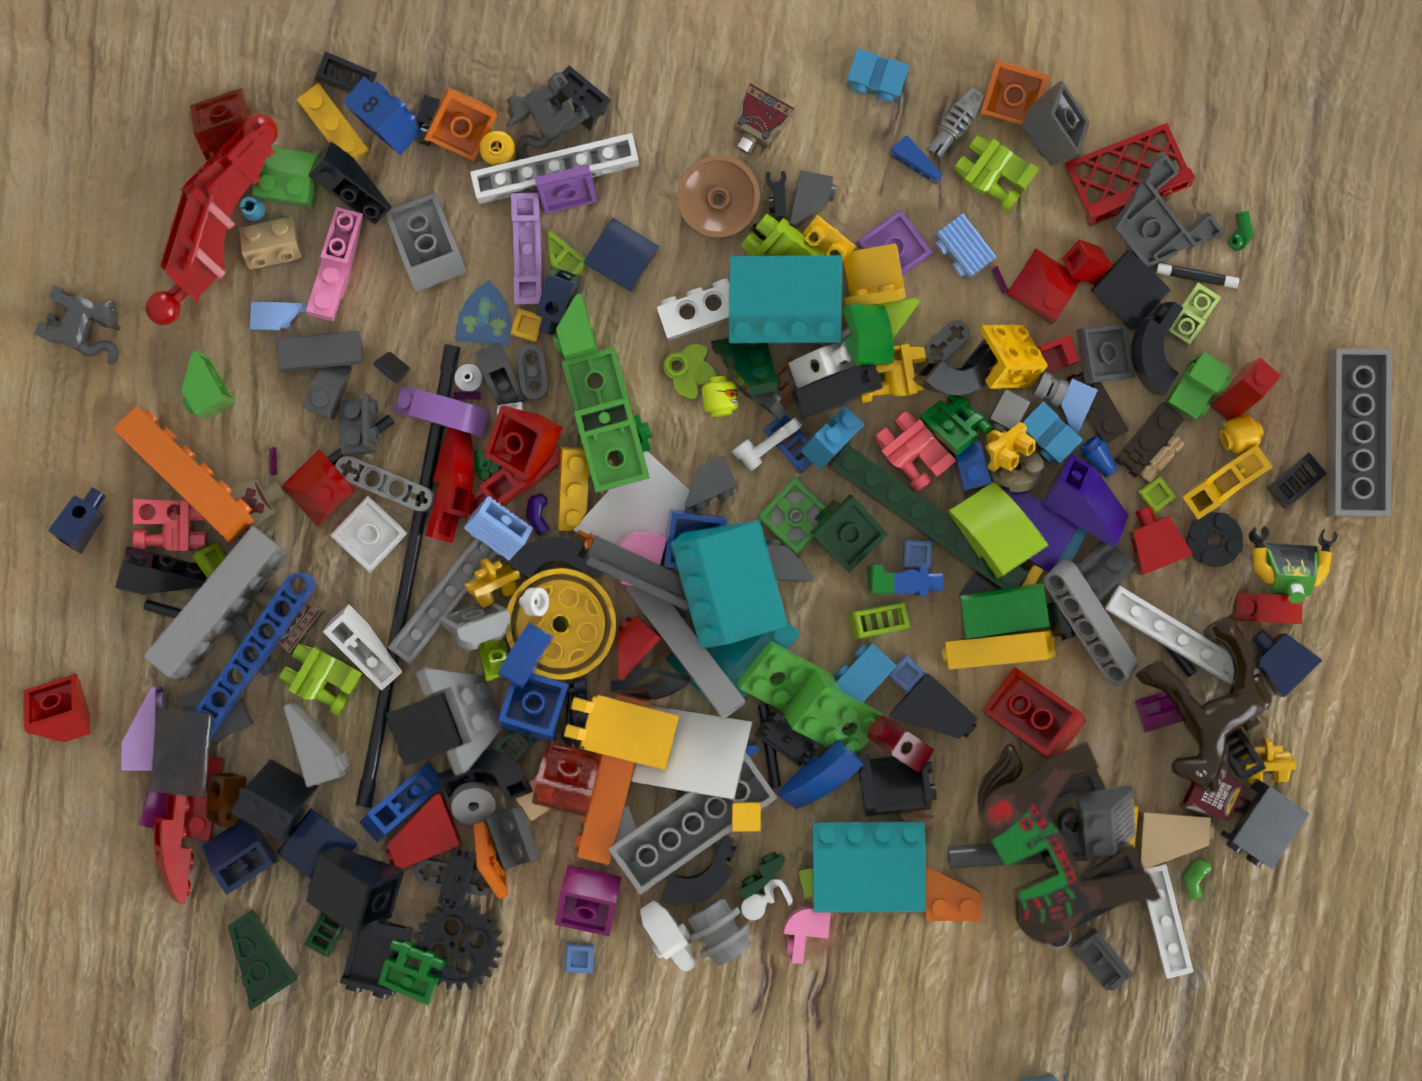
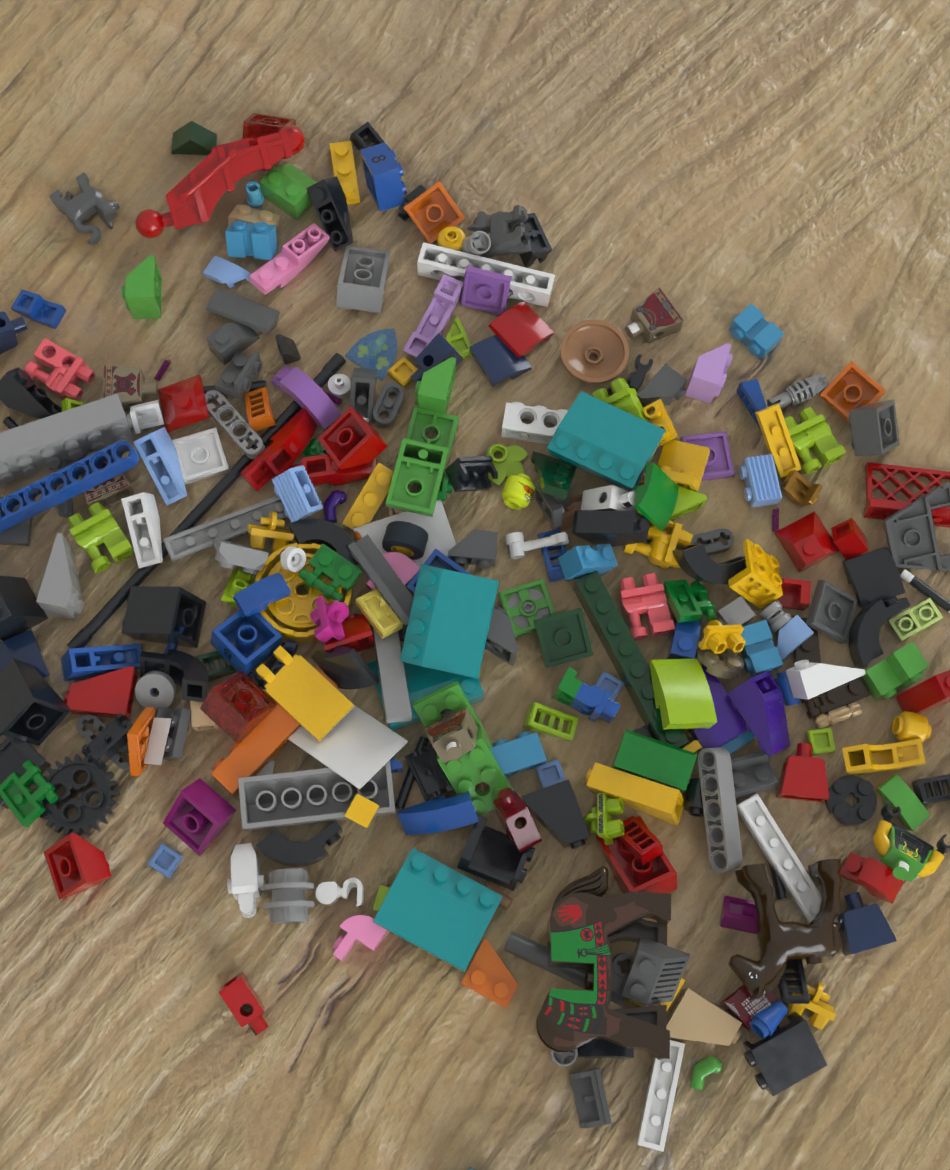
camera: 20 degrees right, 15 degrees down
(101, 465) = (37, 309): none -> blue slope
(146, 177) = (193, 140): none -> dark green slope
(183, 474) = (91, 338): orange brick -> none
(282, 266) = (251, 240): none -> dark azure brick
(288, 524) = (145, 416): none -> white bracket
(338, 566) = (163, 464): none -> light blue slope
(415, 465) = (264, 420): none -> orange slope
(471, 709) = (197, 614): light grey wing -> none
(498, 1011) = (76, 865): none -> red slope
(506, 853) = (157, 741): none -> white sticker
(534, 141) = (480, 241): none -> light grey wheel
(581, 586) = (334, 567): none -> green plate
(608, 642) = (329, 619): none -> dark pink hips
(625, 209) = (521, 329): none -> red slope
(634, 516) = (405, 539): none -> black wheel
(651, 609) = (379, 613): none -> light yellow plate
(663, 406) = (471, 473): none -> black hinge
(732, 1049) = (240, 992): none -> red torso
(769, 867) = (356, 869): dark green slope -> none
(796, 699) = (453, 735): none -> dark tan torso
(852, 159) = (709, 374): none -> lavender slope
(962, 194) = (778, 440): none -> yellow plate
(980, 693) = (602, 820): none -> lime hips
(1010, 234) = (799, 489): none -> pearl gold bracket
(1044, 705) = (646, 854): none -> red slope
(1122, 437) = (813, 679): none -> white slope
(1234, 804) = (768, 1019): none -> blue cone
(1264, 512) = (899, 794): none -> bright green slope

